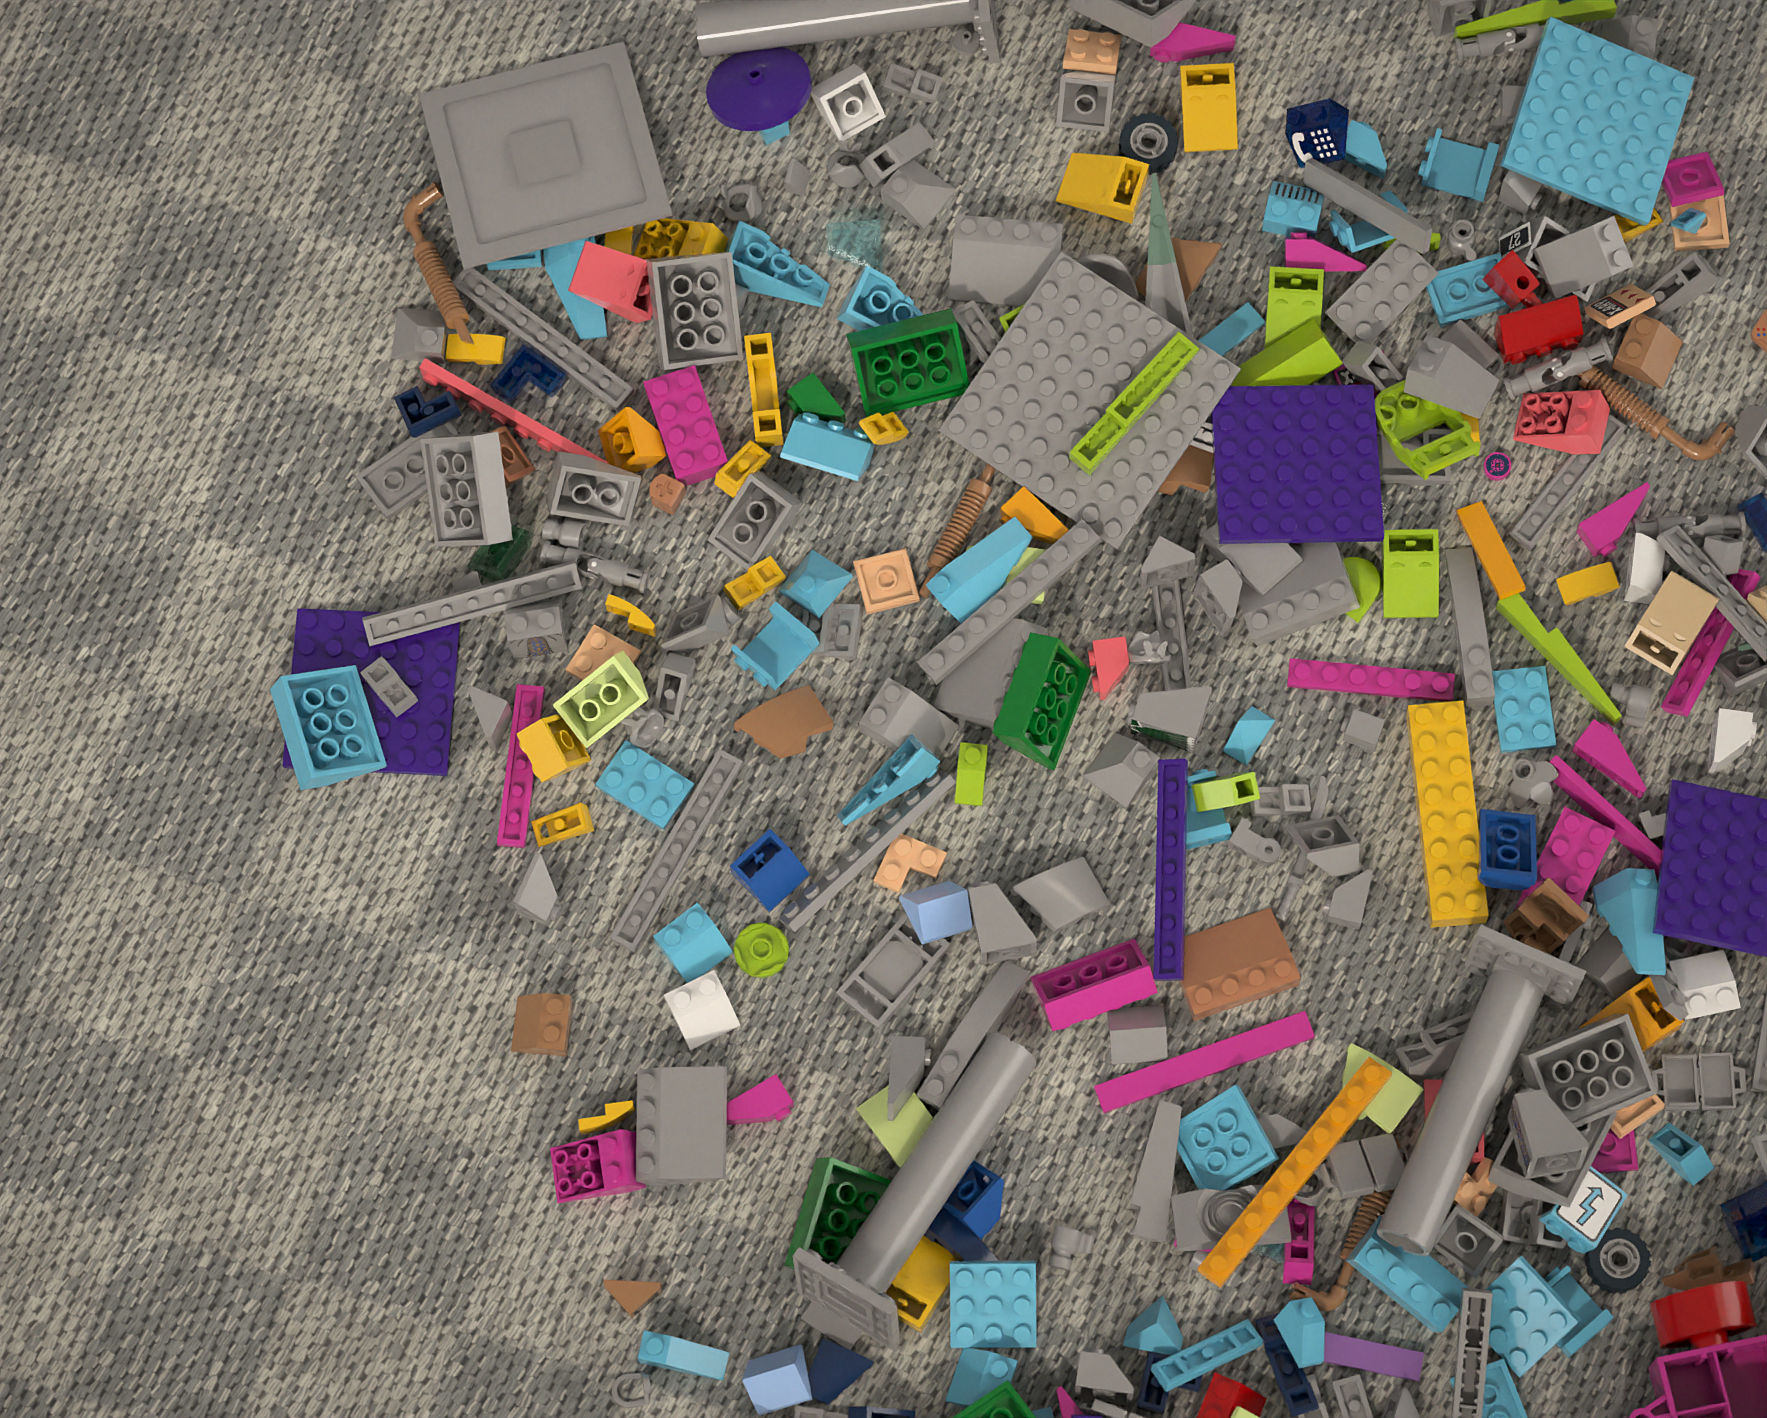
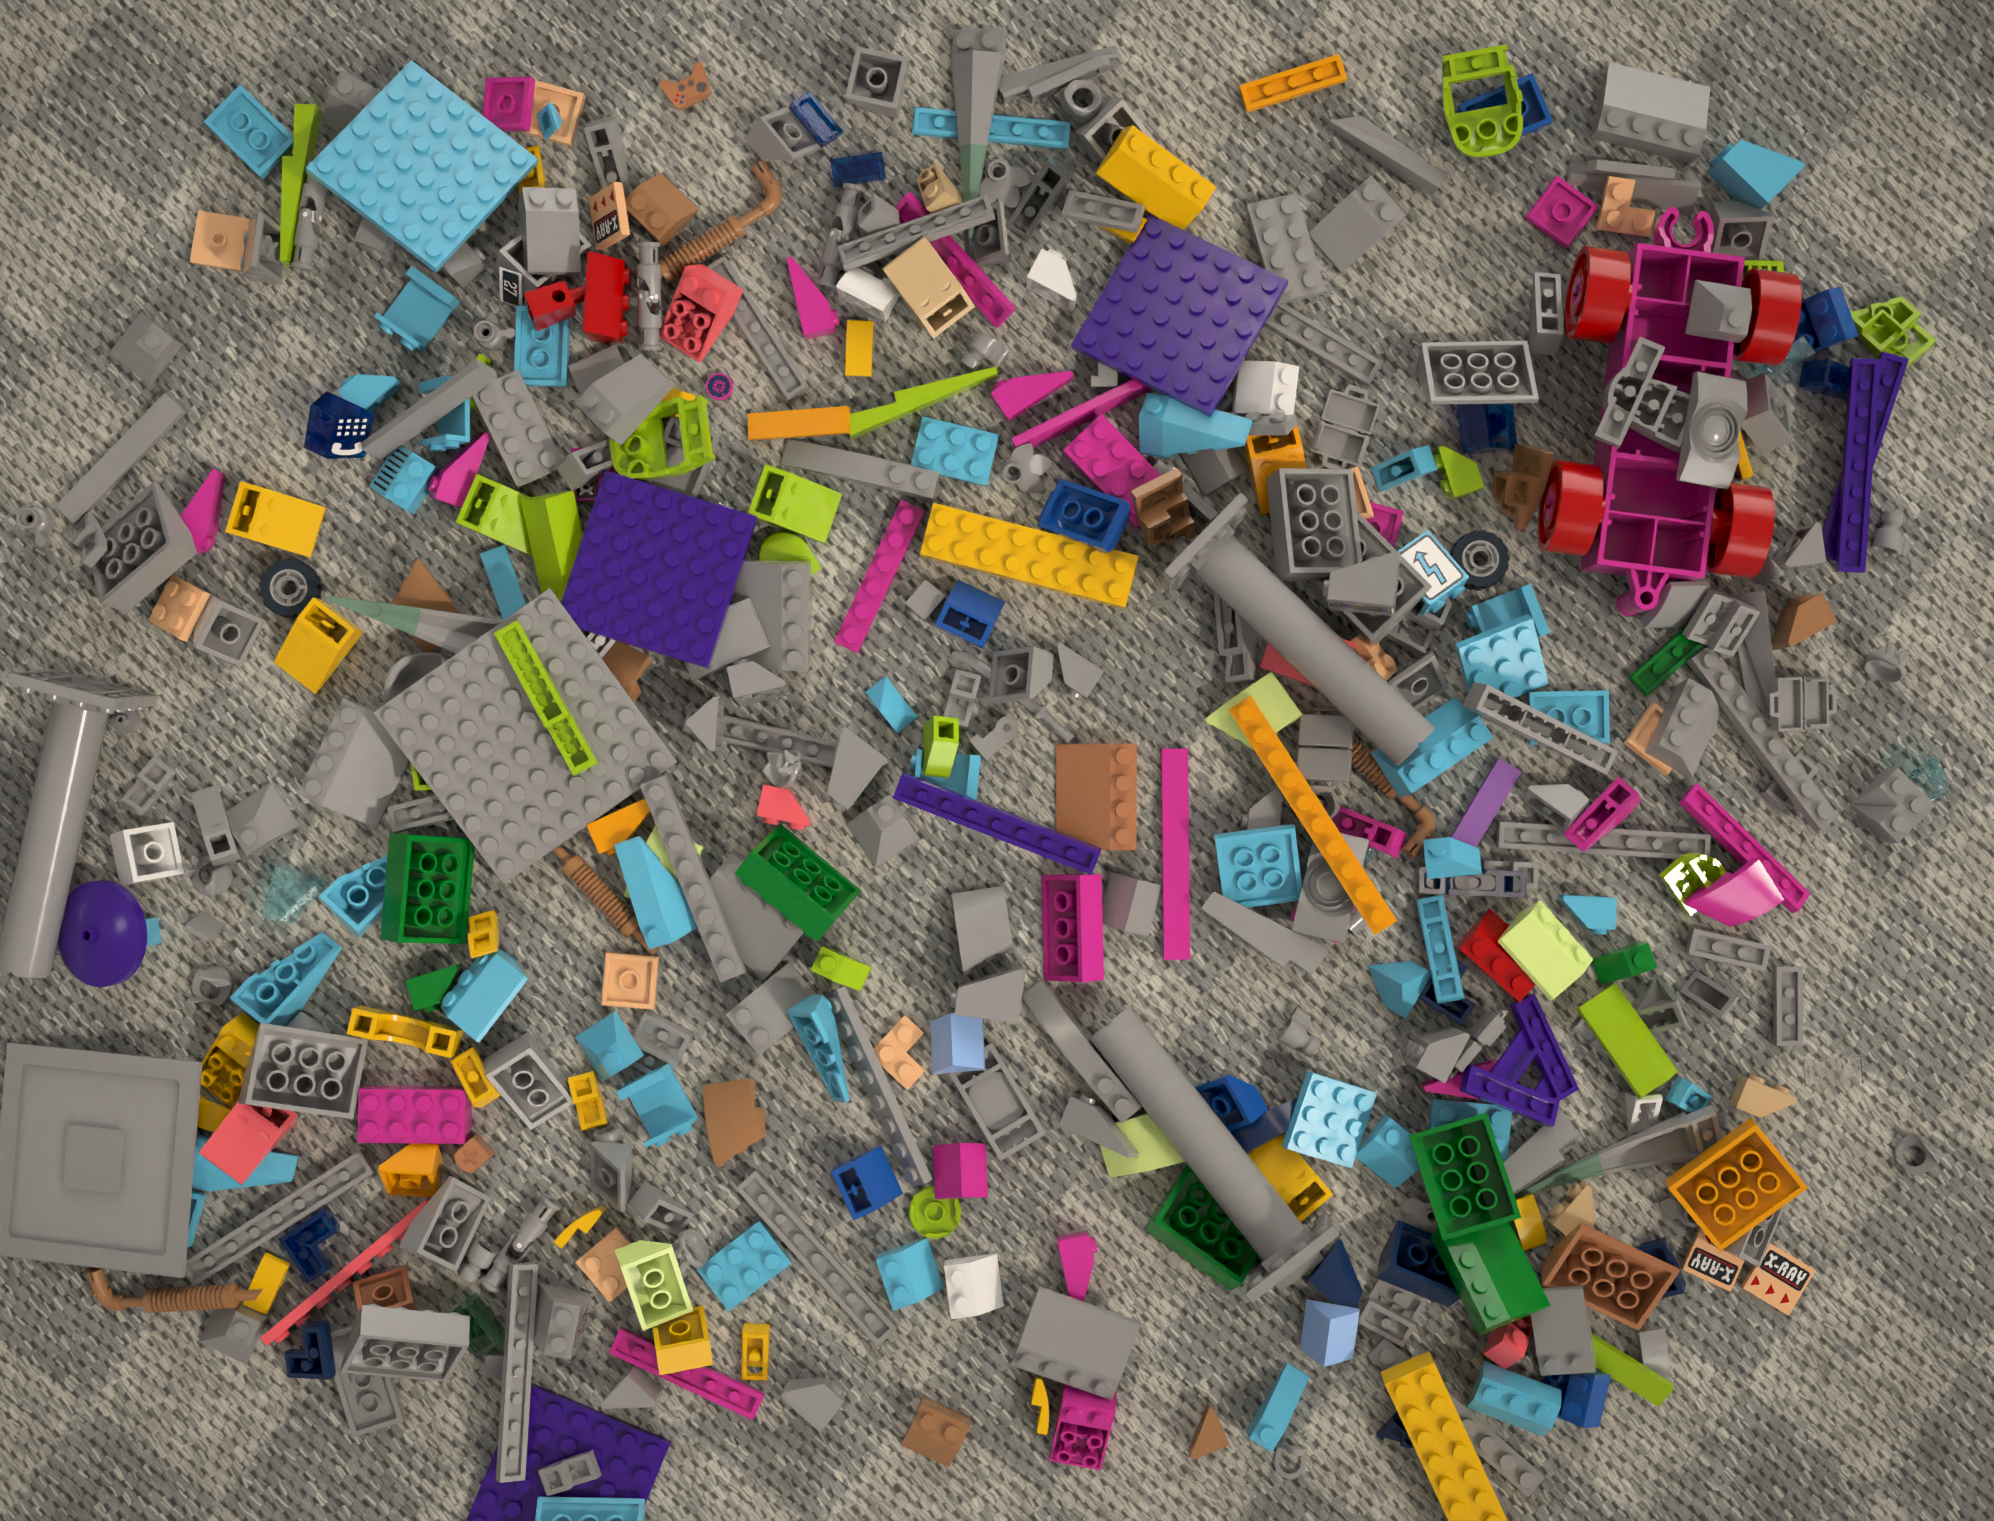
camera: 80 degrees left, 15 degrees up
(812, 959) = (960, 1171): none -> dark pink slope
(1367, 776) = (969, 614): none -> blue slope
(1697, 1210) = (1458, 472): none -> lime slope

